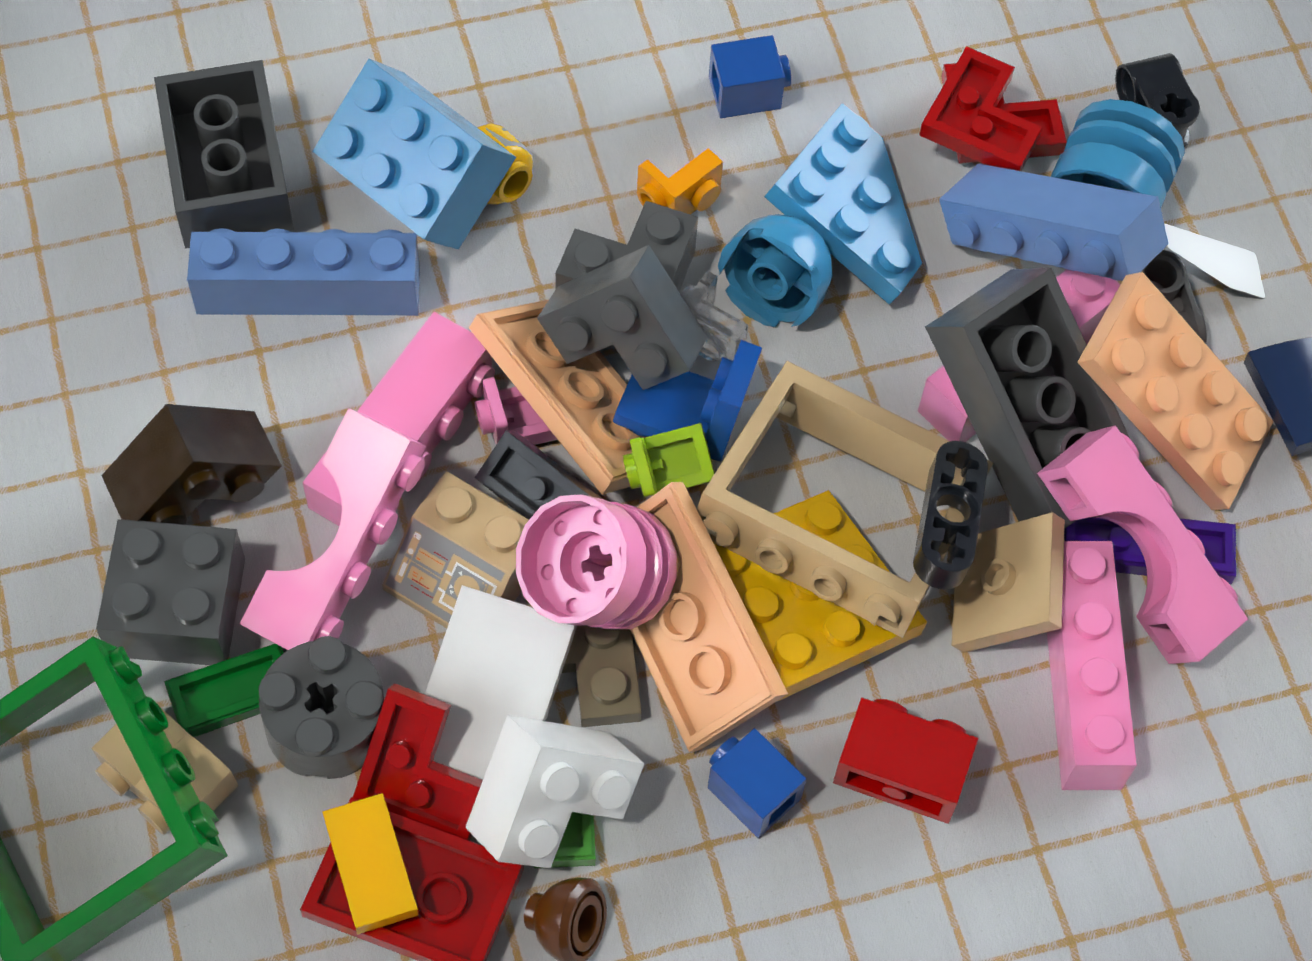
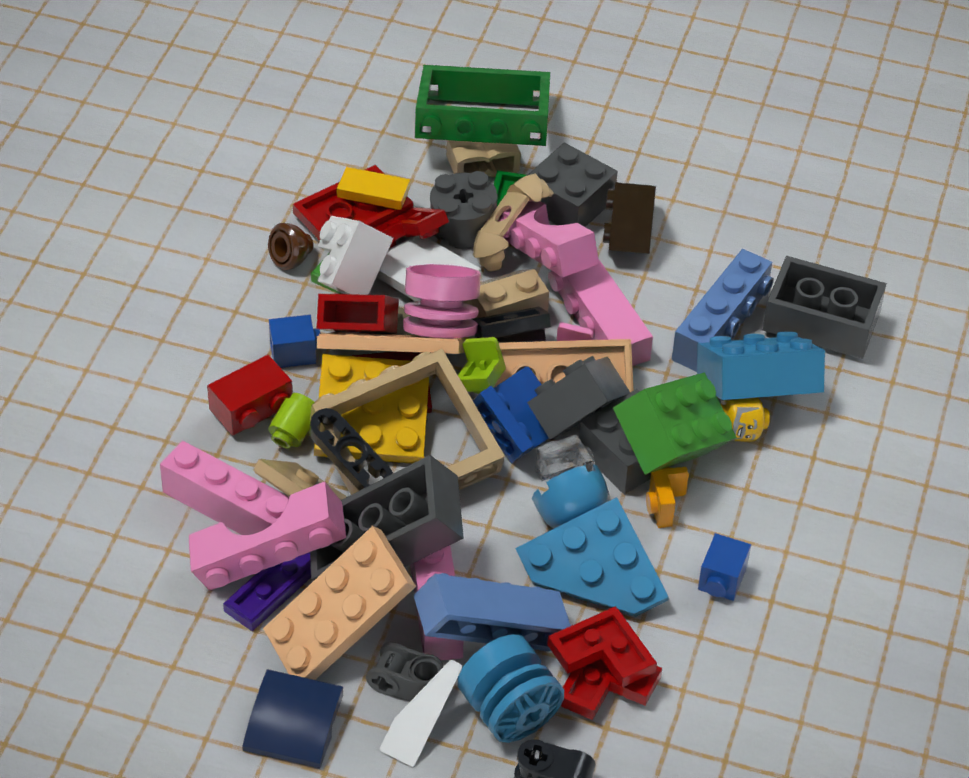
camera: 125 degrees right, 15 degrees down
(275, 601) = (489, 242): none -> tan piece
(602, 181) = (674, 422): none -> bright green brick
(667, 697) = (357, 313): none -> red piece
(904, 676) = (291, 421): none -> lime brick

